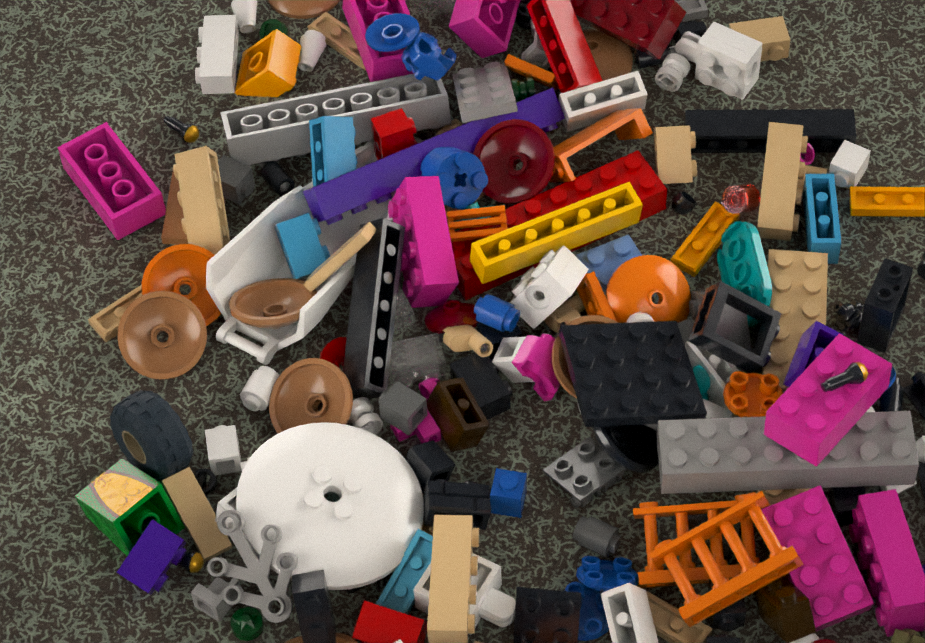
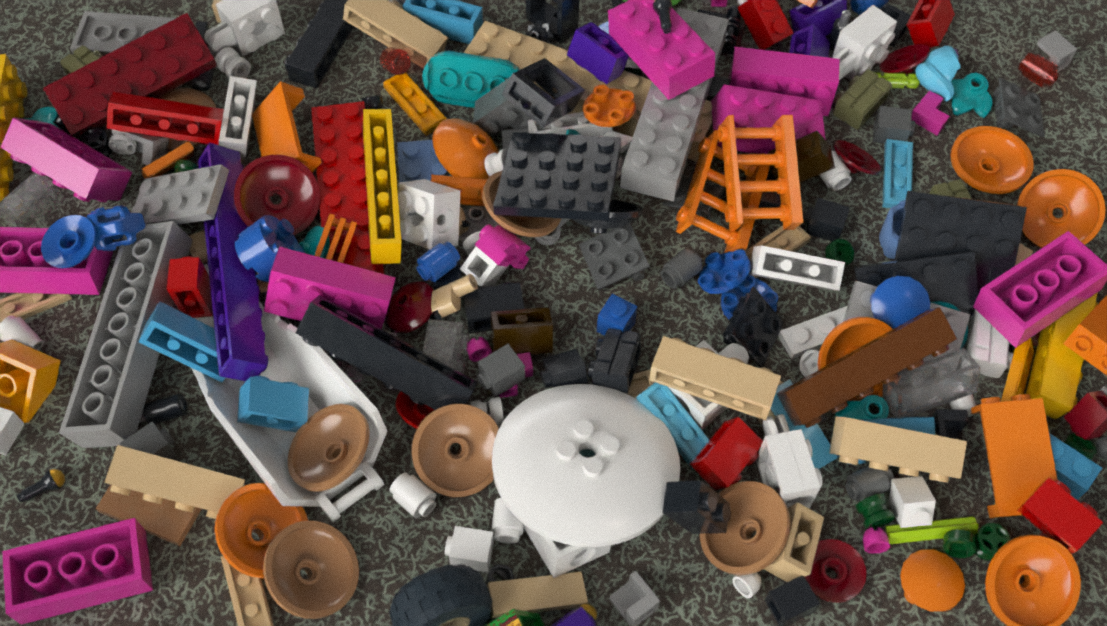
camera: 75 degrees left, 5 degrees up
(247, 624) = (671, 582): dark green tile -> none
(257, 569) = (643, 545): light grey plant -> none
(340, 256) = (321, 362): tan tile -> none
(673, 154) = (326, 84): tan brick -> none

